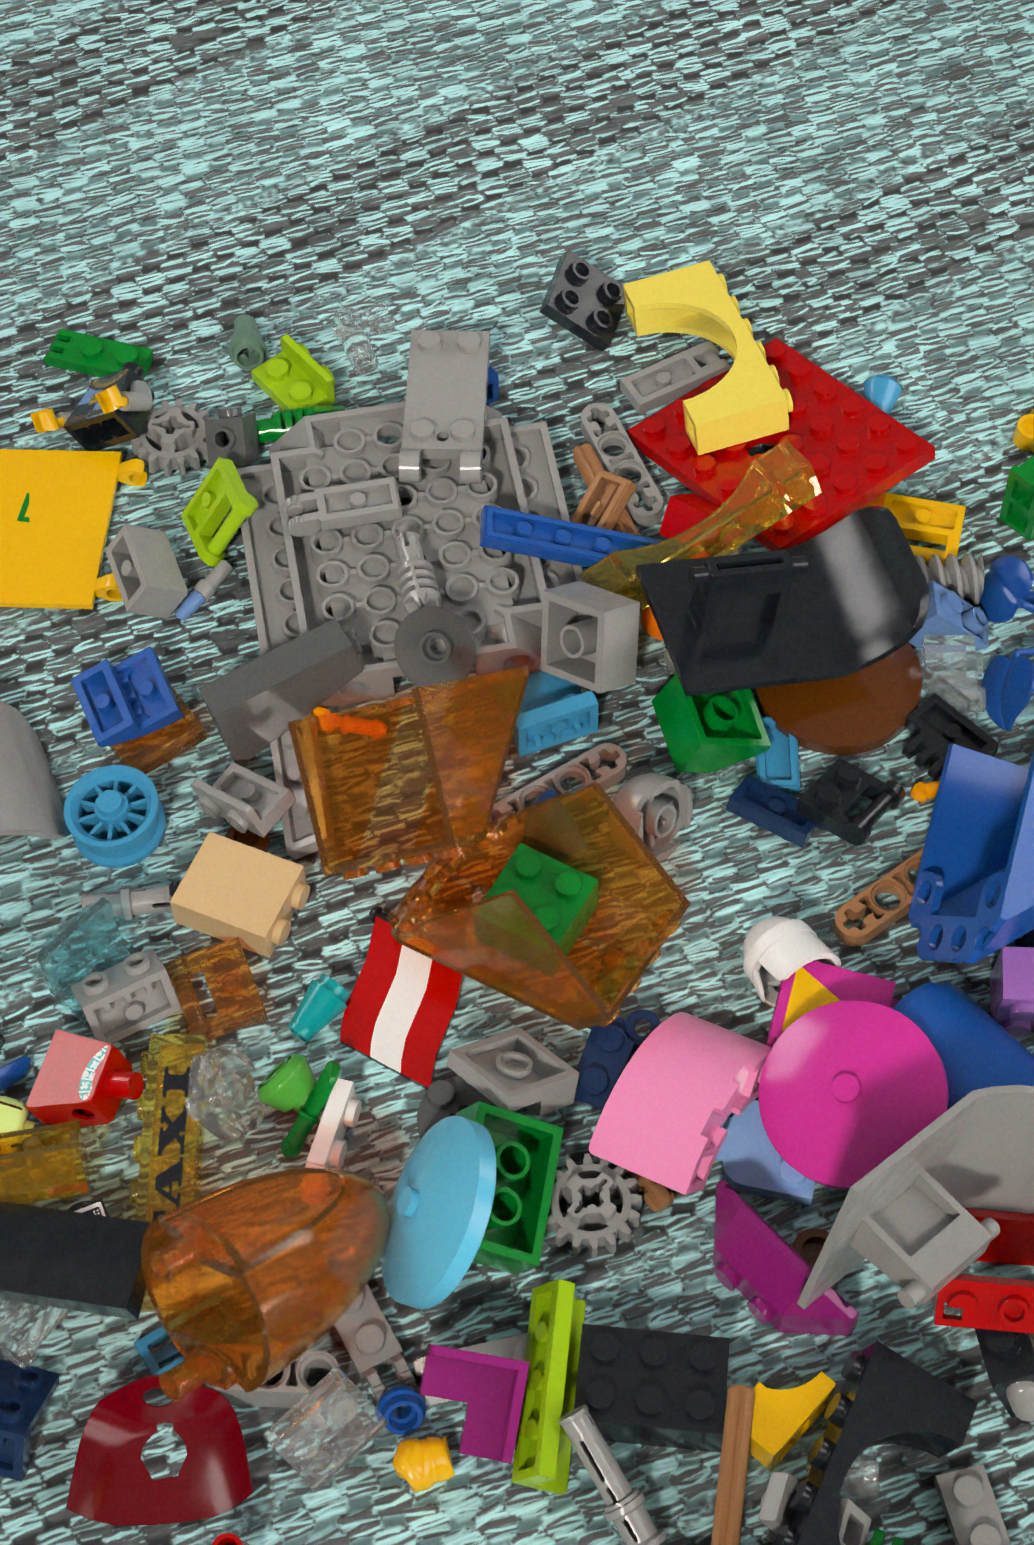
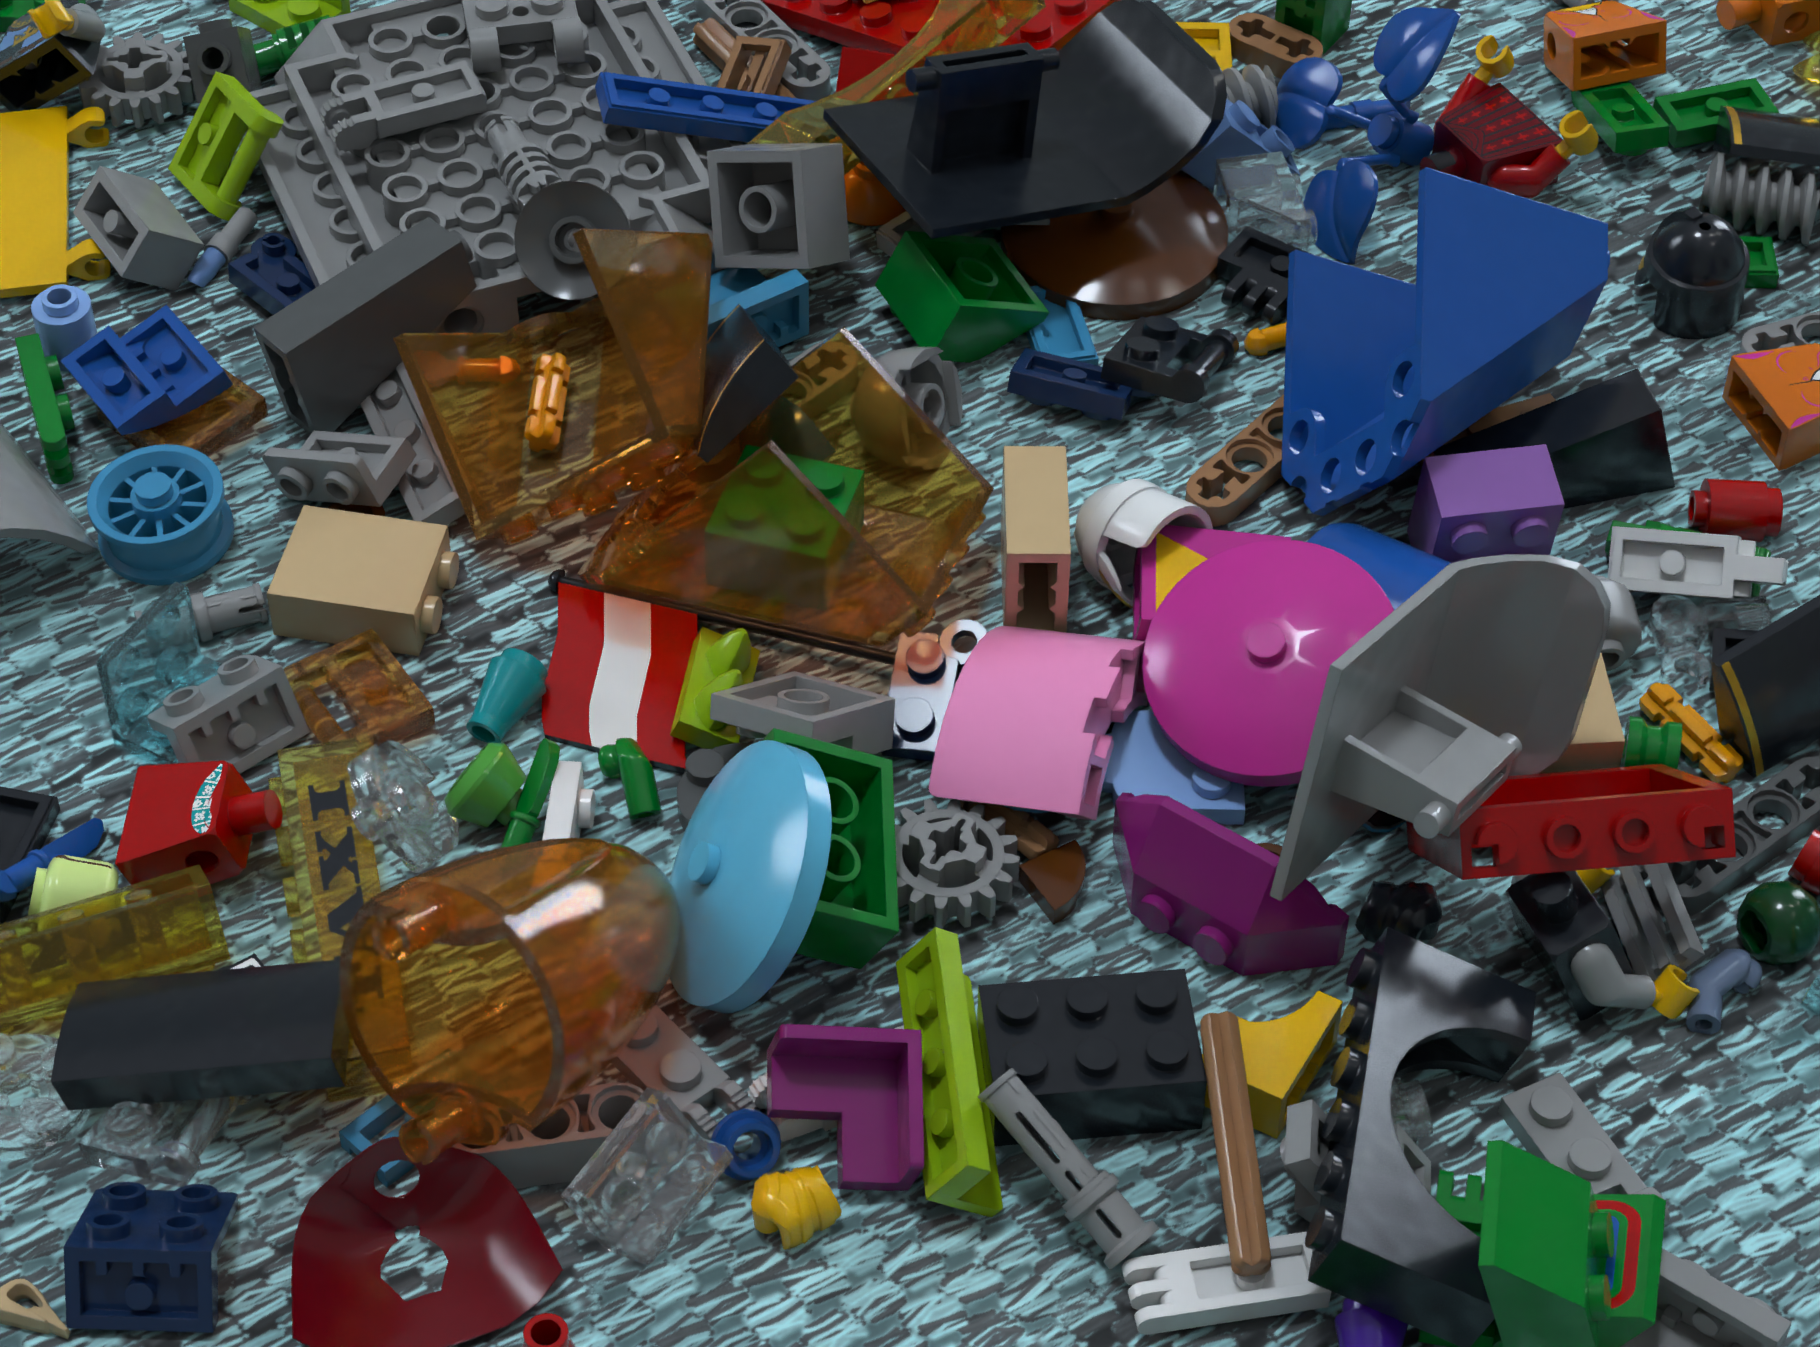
camera: 15 degrees left, 10 degrees down
(57, 714) = (50, 412): none -> green hinge
(80, 645) = (63, 320): none -> light blue brick
(235, 625) = (271, 273): none -> dark blue hinge
(390, 1077) = (637, 775): none -> green arm
(399, 763) = (547, 402): none -> light orange axle
(464, 1022) = (713, 666): none -> lime tile
(526, 790) = (741, 380): none -> black slope
(666, 1230) = (1055, 879): none -> reddish brown tile
(710, 951) = (1035, 537): none -> tan brick
(889, 1311) = (1404, 907): none -> black arm
(998, 528) = (1271, 43): none -> medium nougat beam

